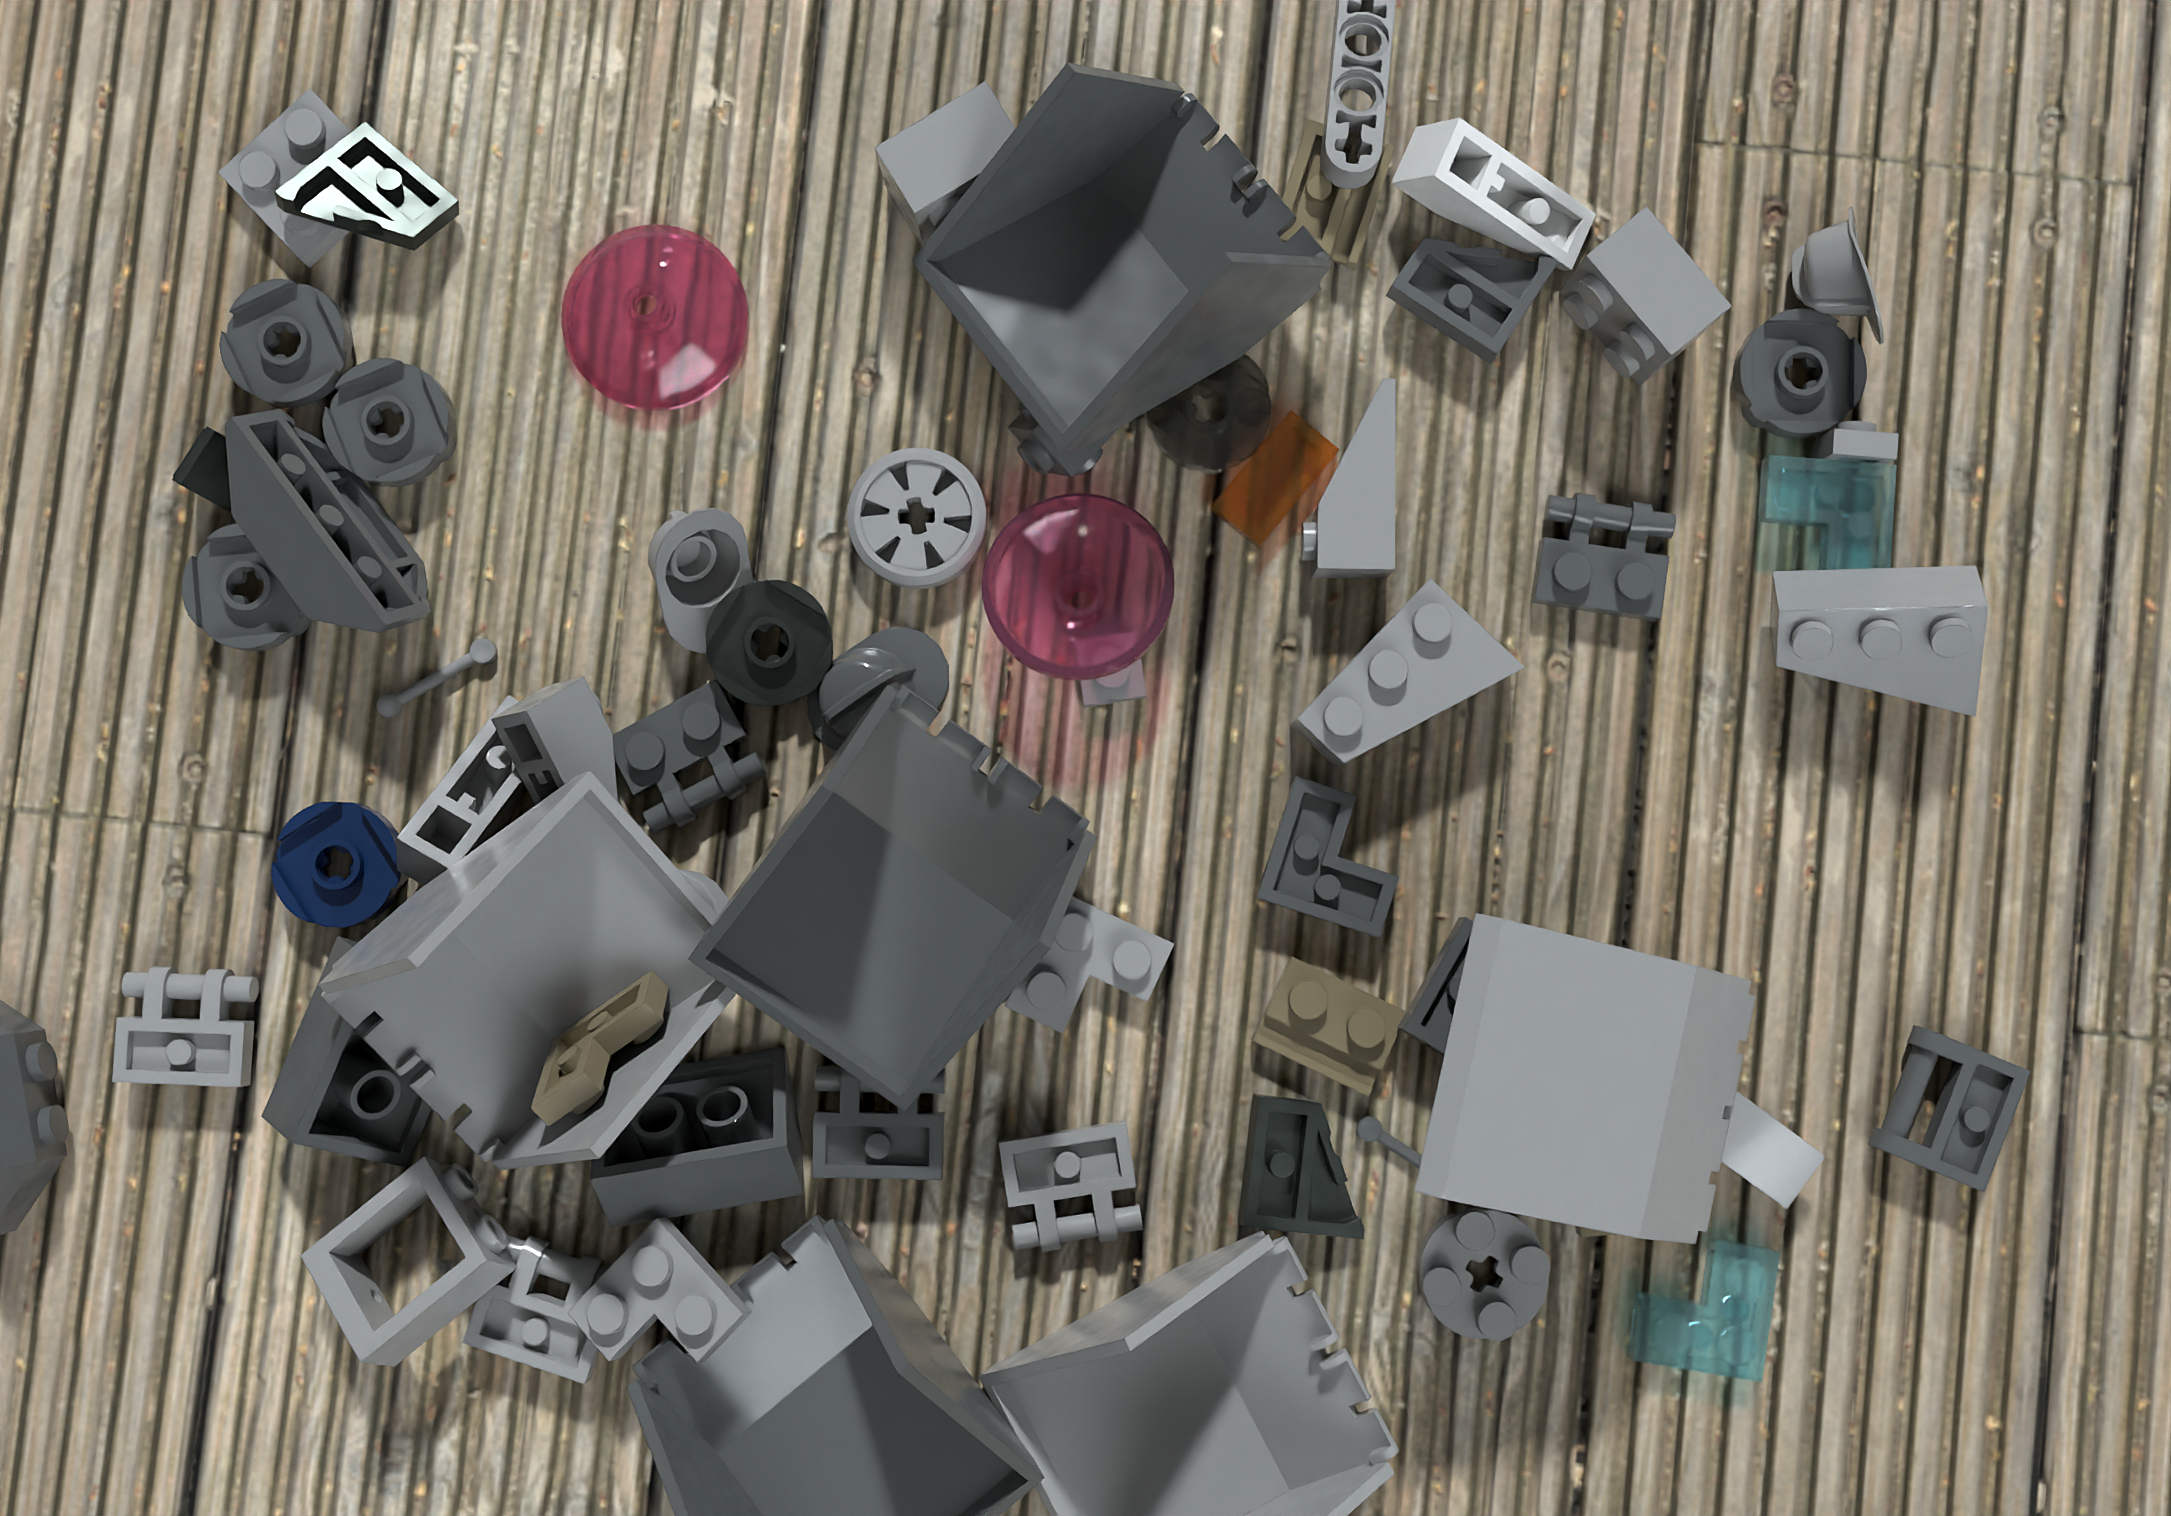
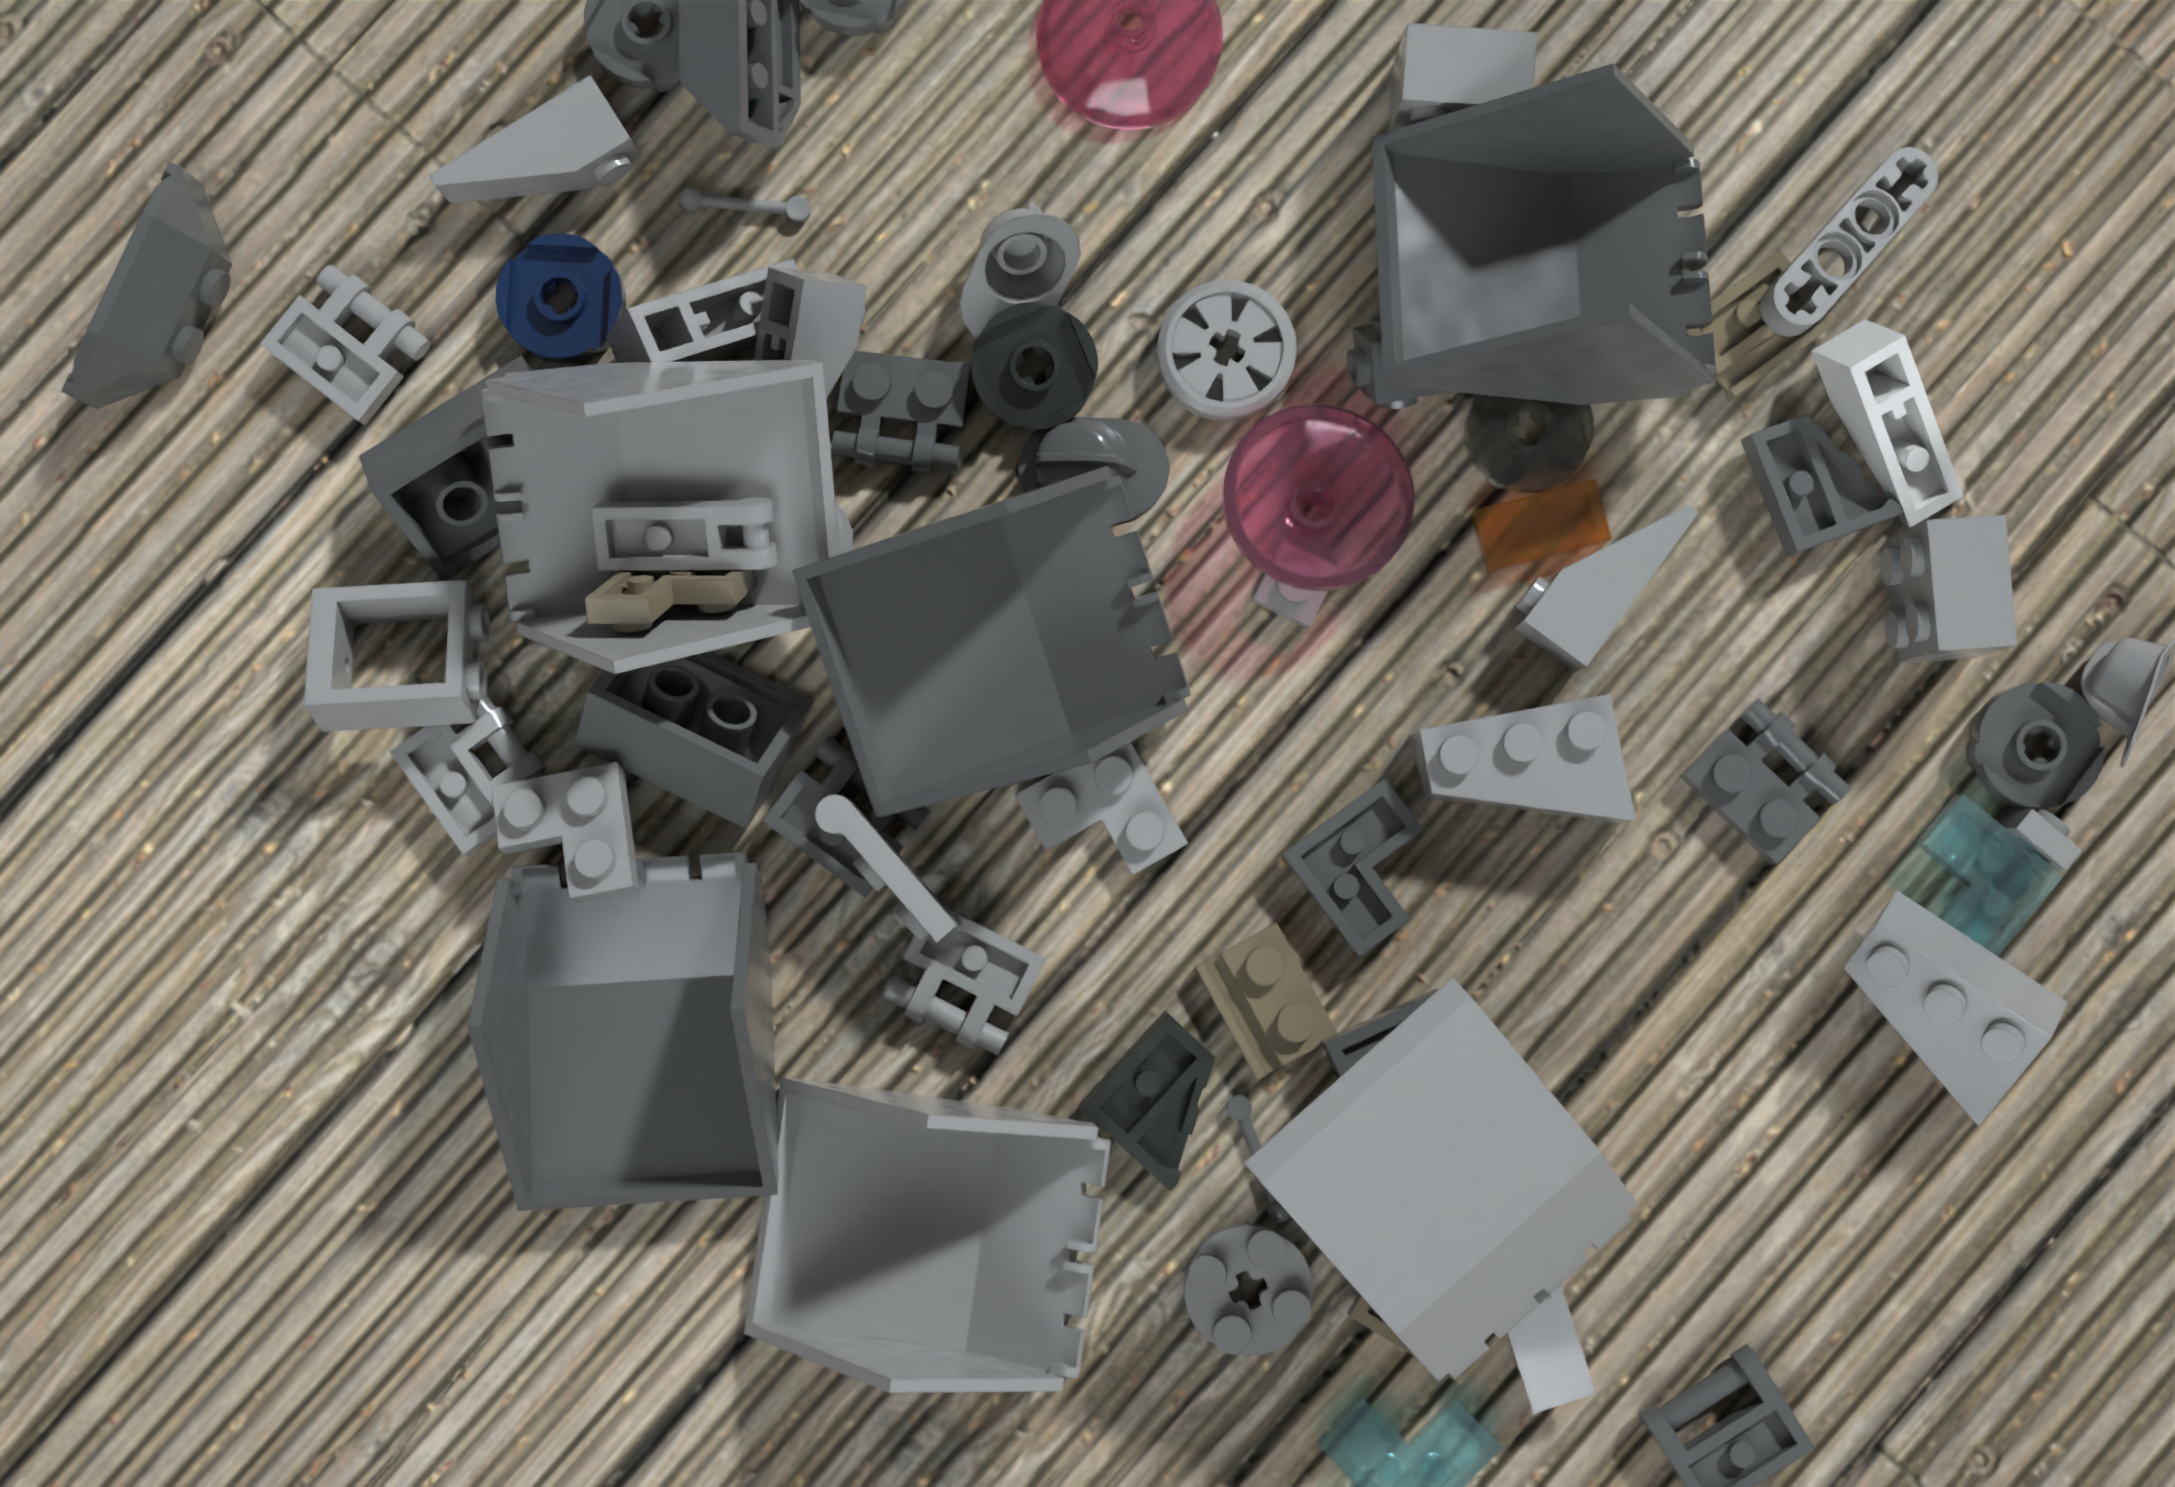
camera: 30 degrees right, 0 degrees up
(243, 745) = (550, 150): none -> light grey slope
(577, 991) = (683, 535): none -> light grey plate
(938, 1144) = (883, 865): none -> light grey plate

